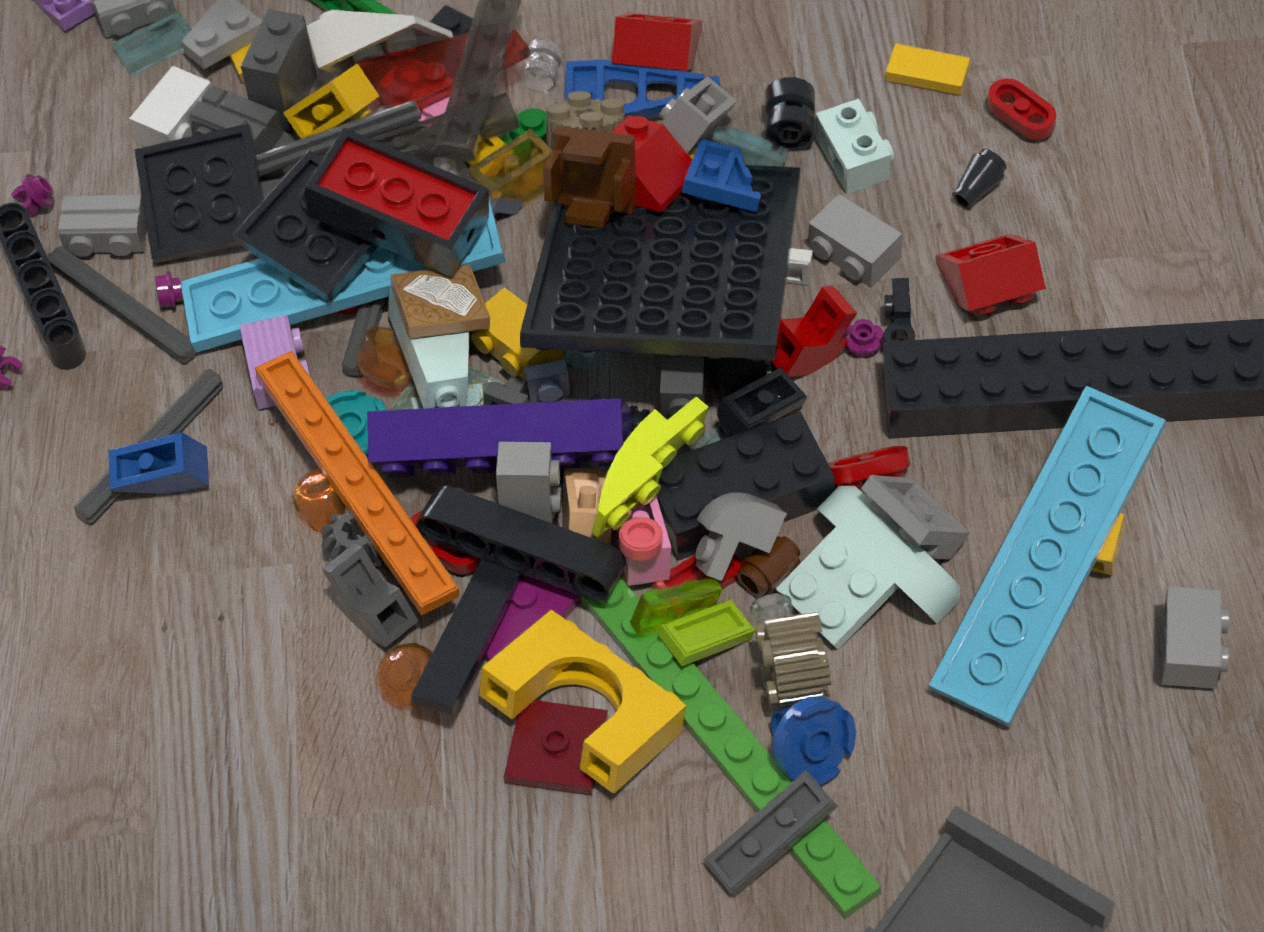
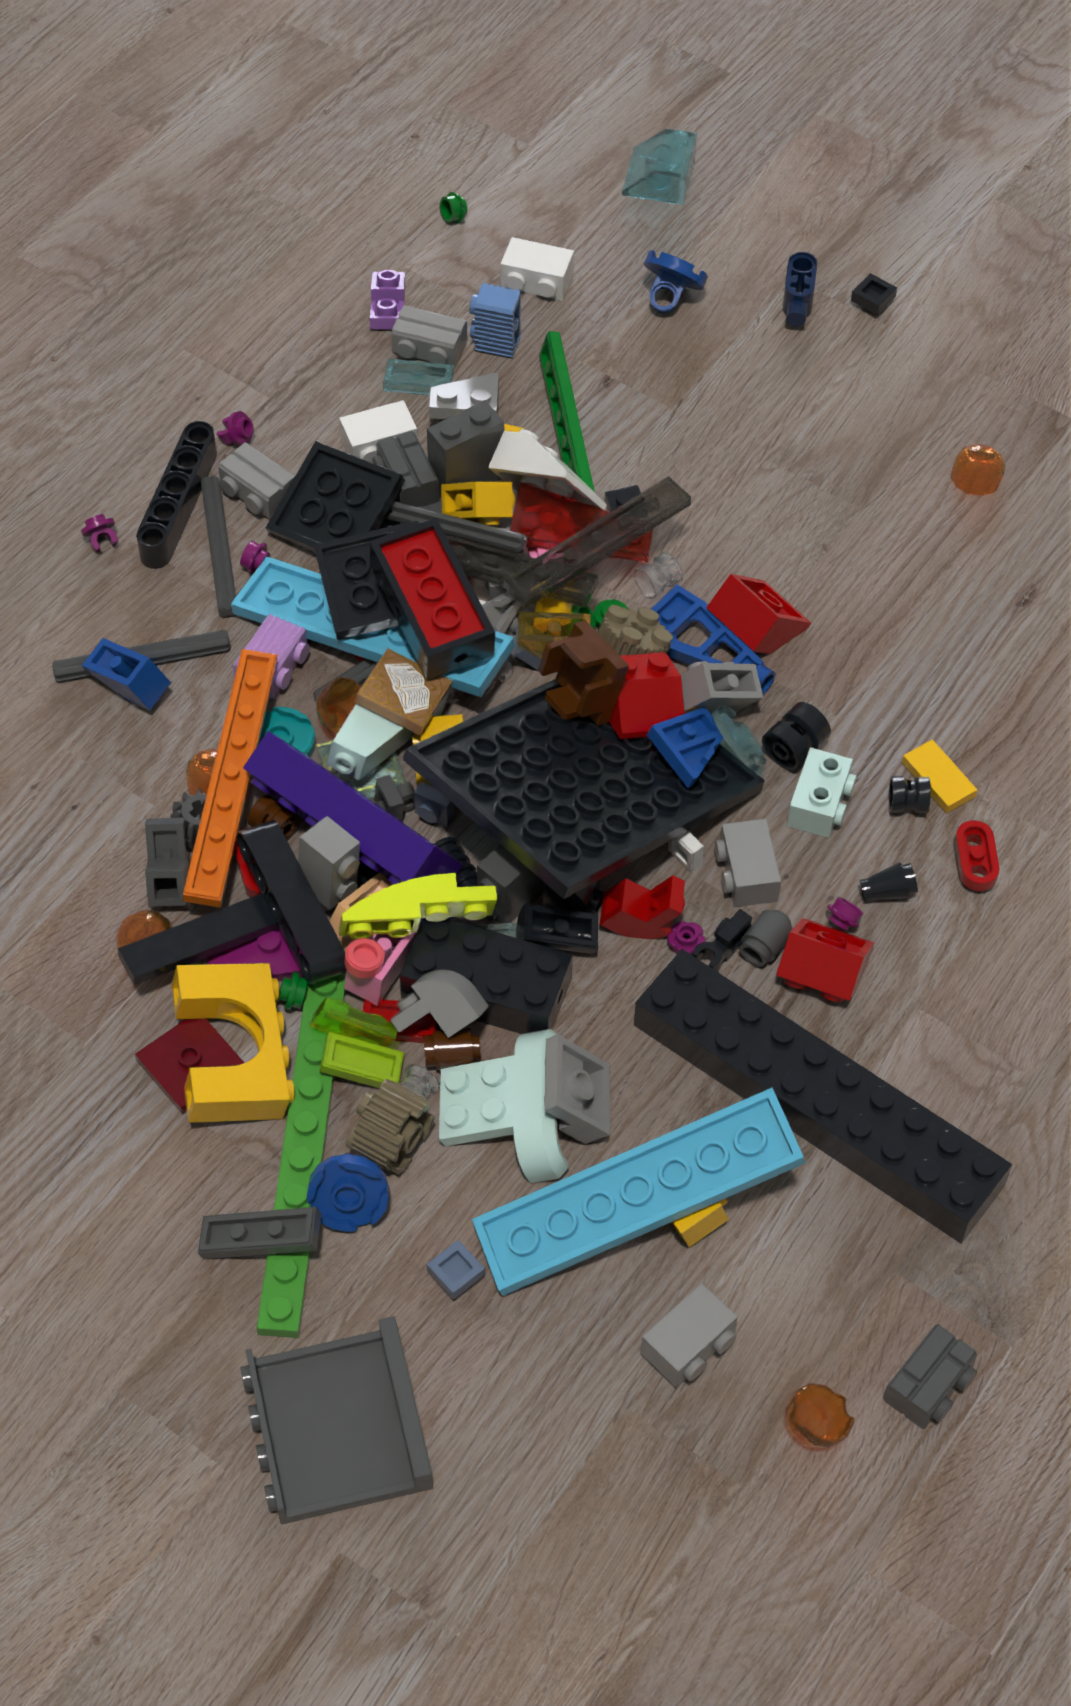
camera: 35 degrees right, 0 degrees up
(411, 488) = (269, 809): none -> reddish brown wheel
(589, 618) = (293, 991): none -> green plate
(879, 462) = (580, 1027): red plate -> none
(919, 100) = (909, 794): none -> black wheel
(928, 289) = (765, 937): none -> dark grey brick
(955, 735) = (455, 1269): none -> sand blue plate
(968, 226) = (844, 913): none -> magenta plate

